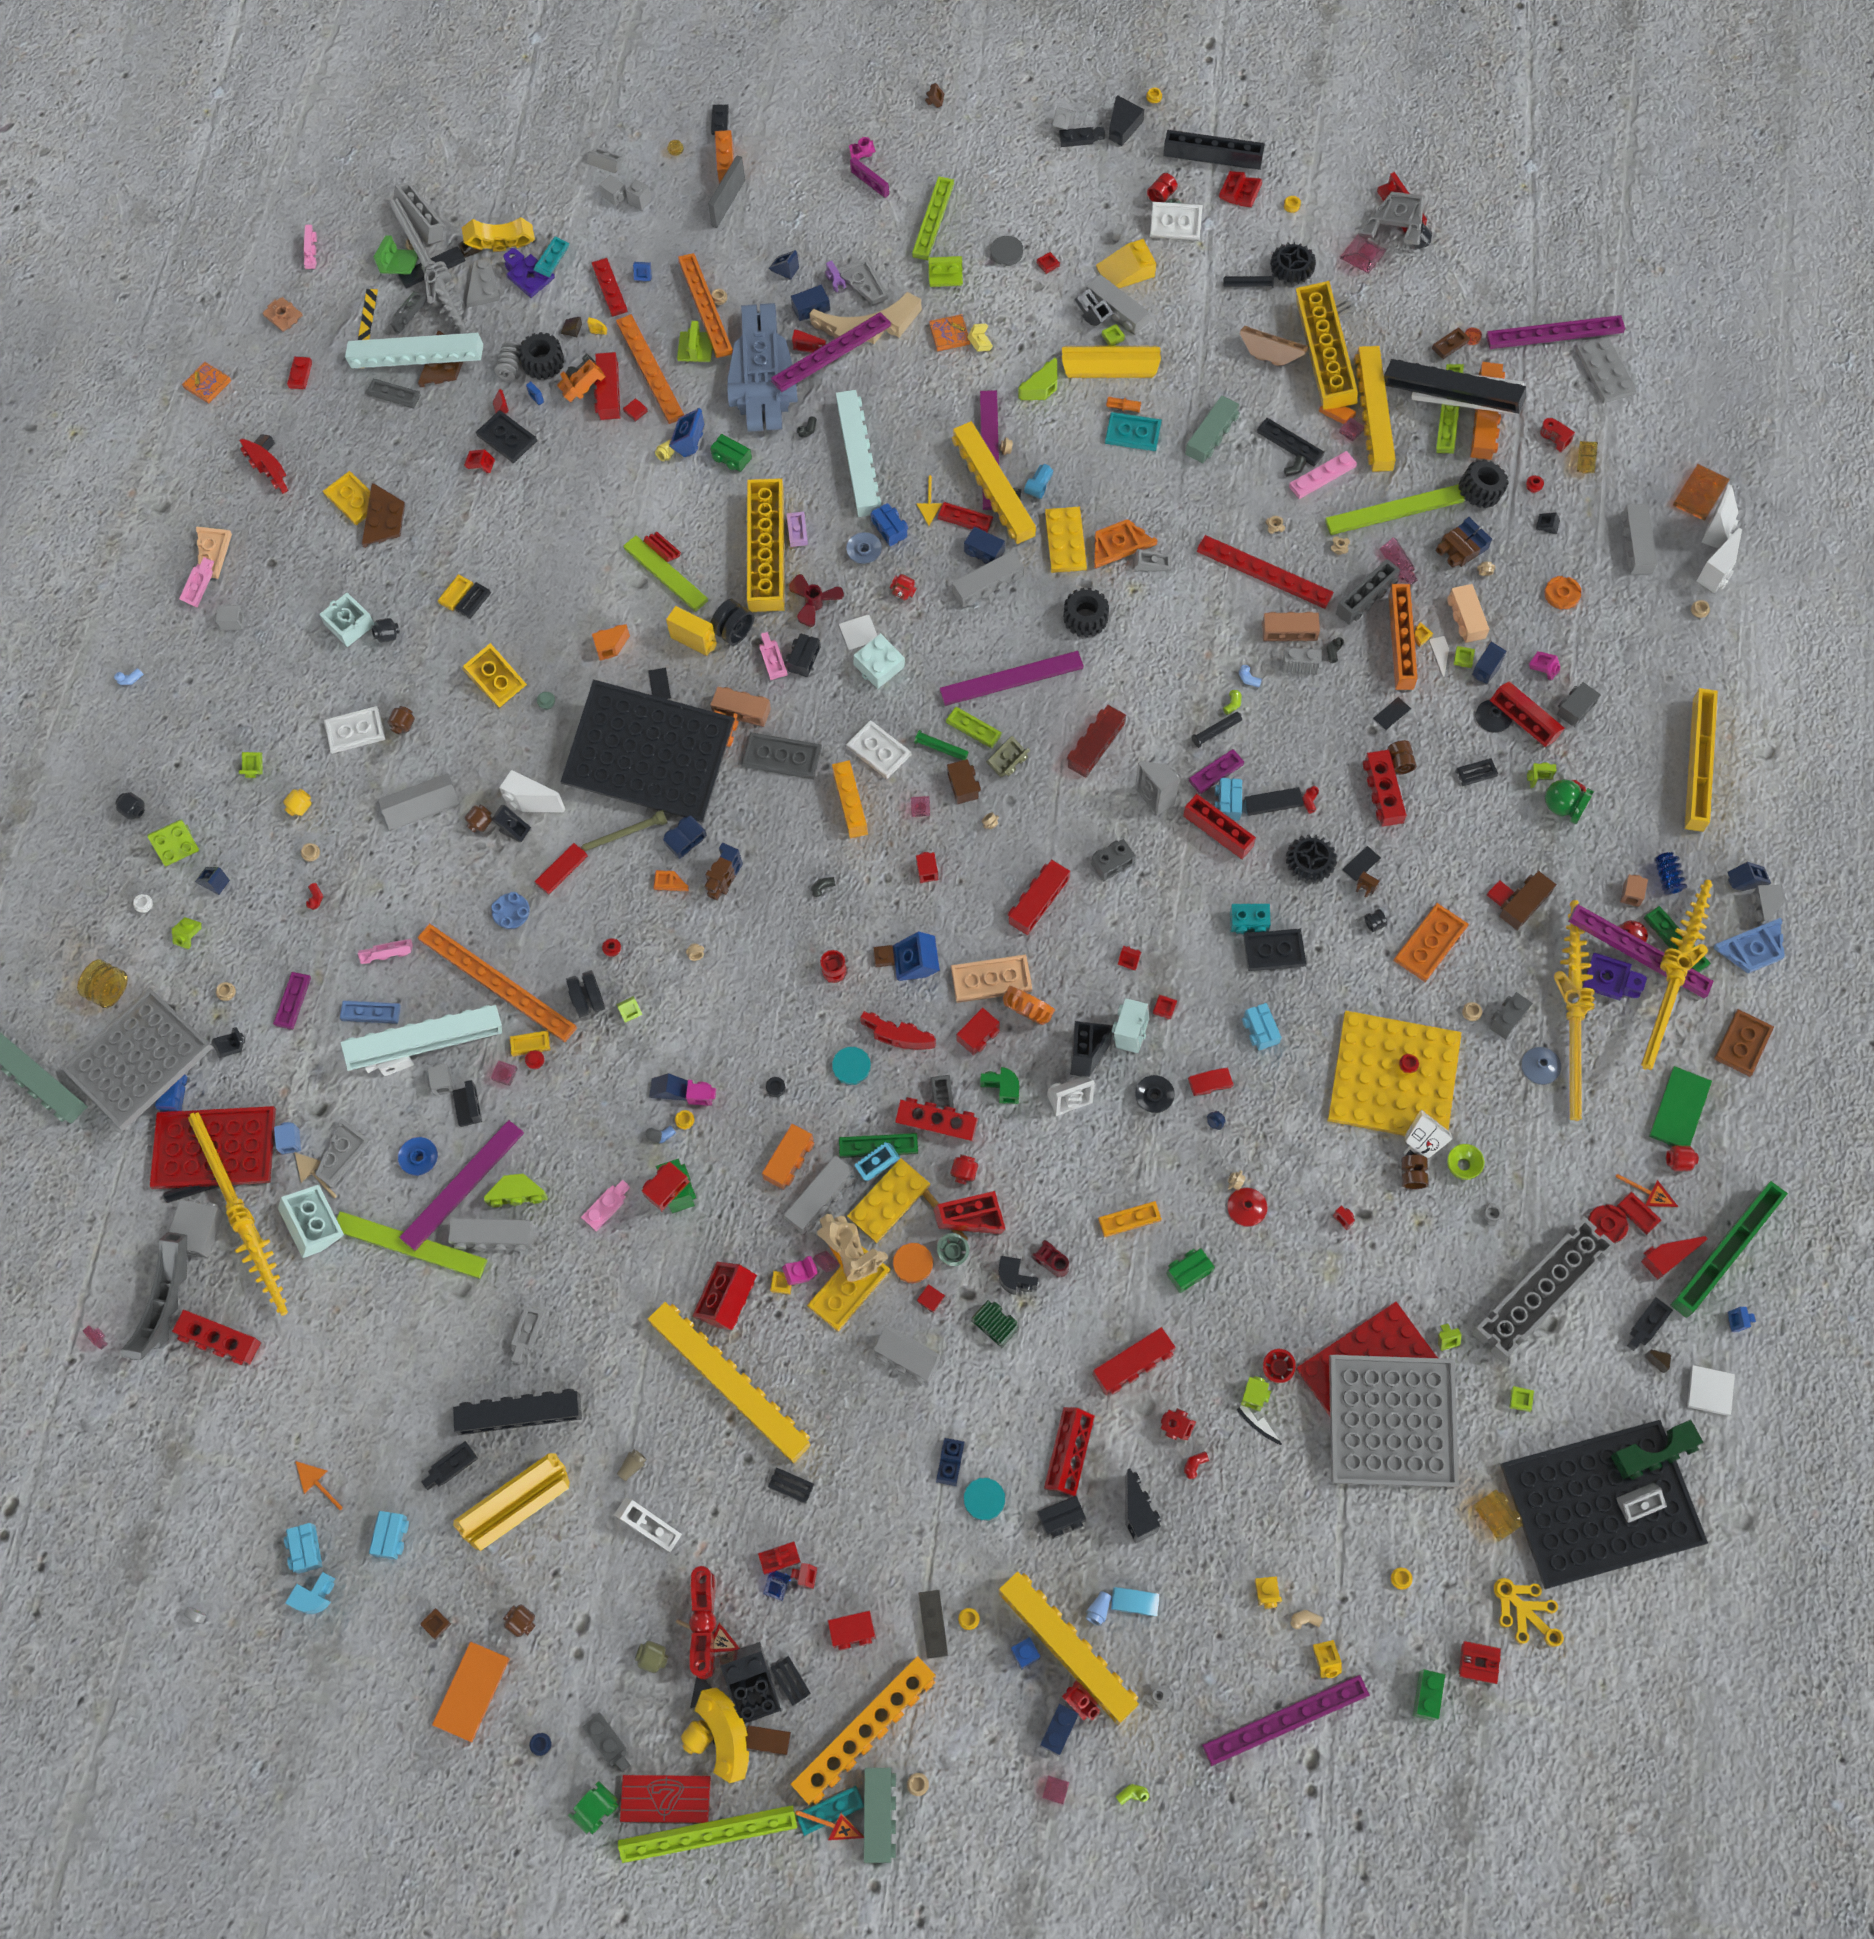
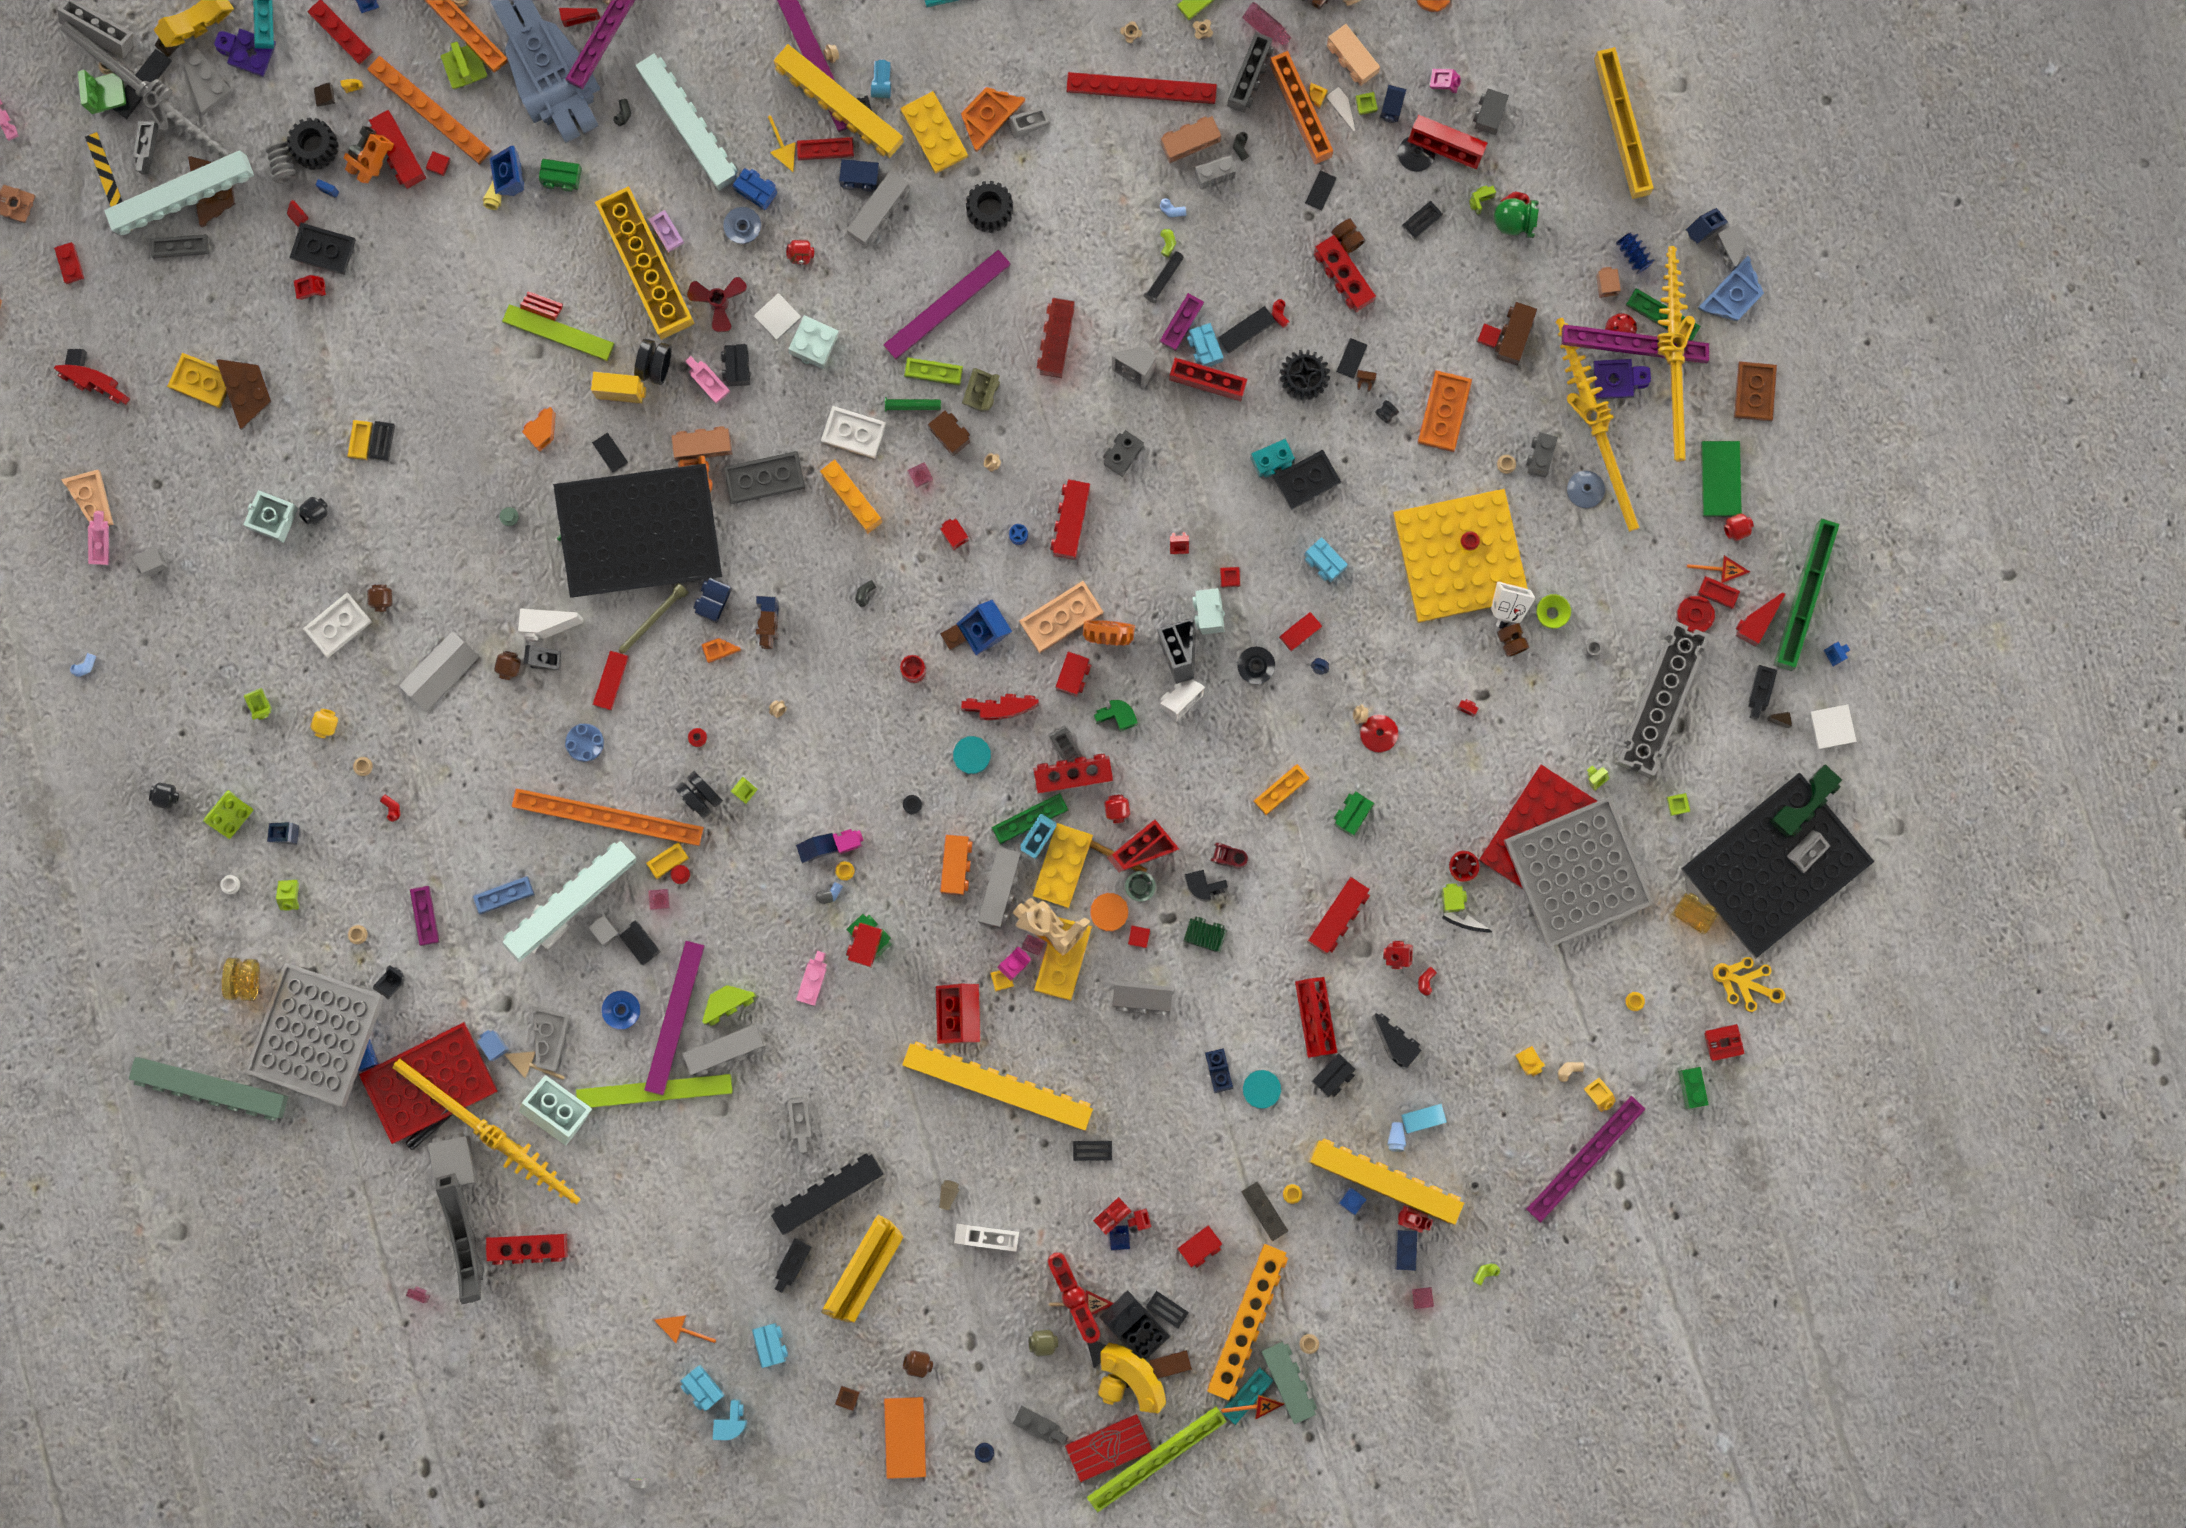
camera: 25 degrees left, 15 degrees up
(385, 951) = (488, 831): bright pink hinge -> none
(494, 675) = (446, 513): yellow slope -> none
(593, 1808) = (1055, 1482): green brick -> none
(988, 888) = (1020, 531): none -> blue wheel

